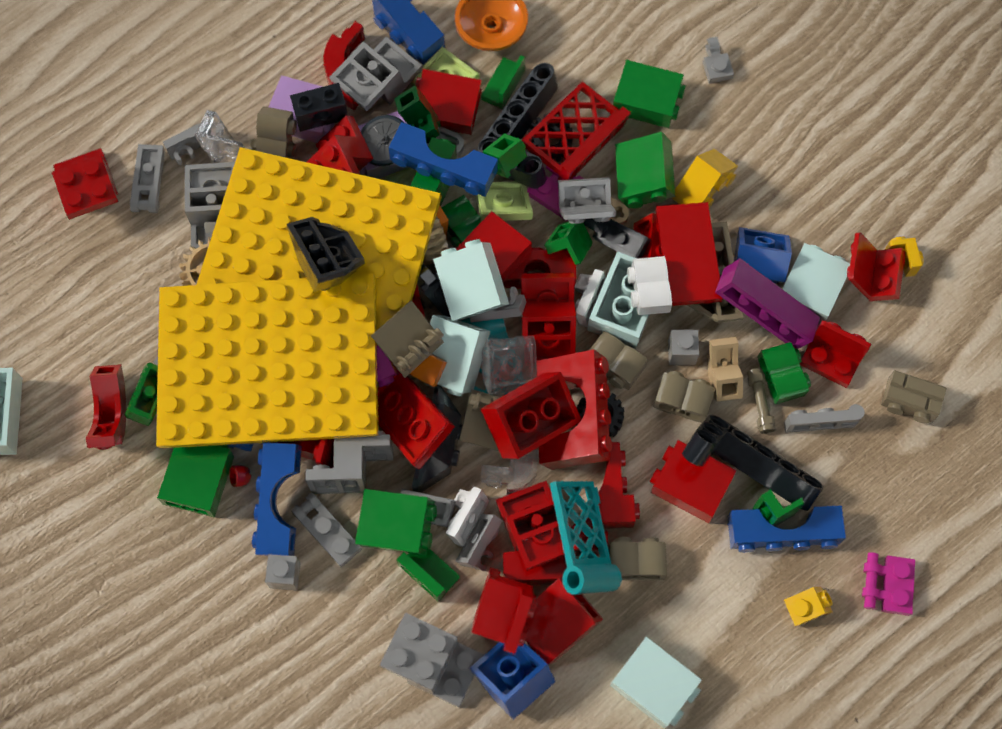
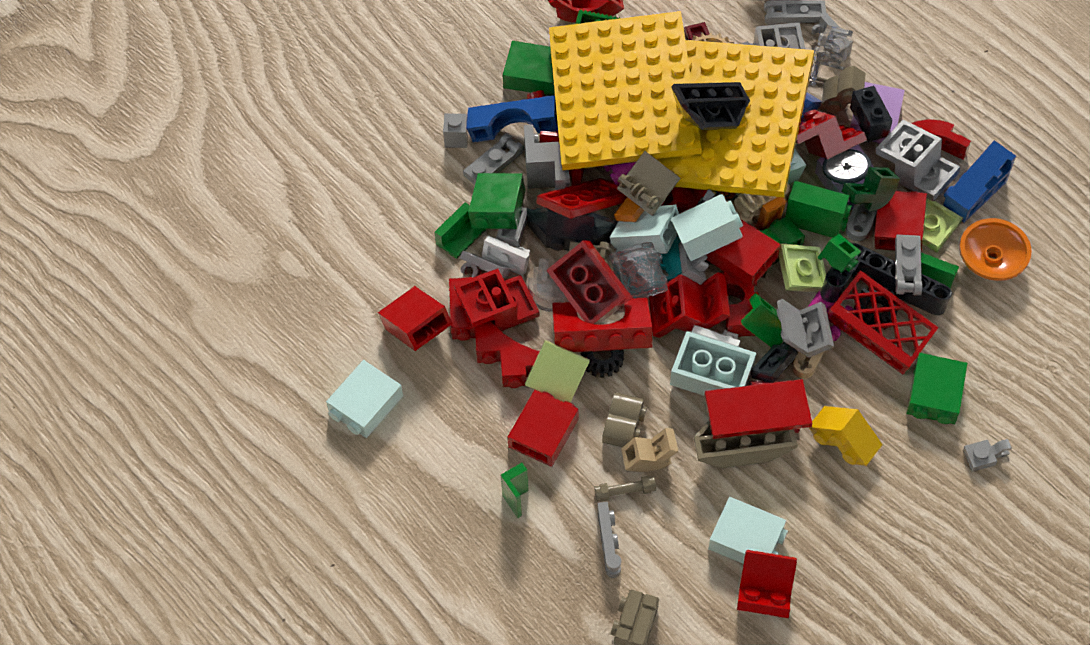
camera: 90 degrees right, 10 degrees down
(161, 280) = (696, 30): none -> dark red tile
(431, 660) = (383, 233): light grey bracket -> none
(472, 172) = (814, 220): blue arch -> none
(504, 610) = (419, 269): red bracket -> none
(513, 678) = (369, 291): blue slope -> none
(515, 95) = (908, 264): none -> light grey plate
(588, 572) = (450, 335): teal piece -> none
(623, 361) = (653, 365): dark tan brick -> none
(631, 460) = (557, 371): none -> yellowish green tile
(639, 559) = (470, 384): dark tan brick -> none
(645, 170) = (847, 381): green brick -> none
(651, 285) = (719, 372): white brick -> none
(683, 347) = (671, 416): light grey brick -> none
(751, 530) = (504, 531): blue arch -> none
(752, 459) = (570, 468): black beam -> none
(765, 252) = (775, 487): blue slope -> none
(767, 304) = (714, 479): magenta brick -> none
(783, 373) = (652, 505): green brick -> none
(809, 605) = (432, 524): yellow bracket -> none
(835, 353) = (672, 549): red bracket -> none
(897, 584) = (453, 602): dark pink plate -> none
(913, 259) = (787, 626): yellow bracket -> none

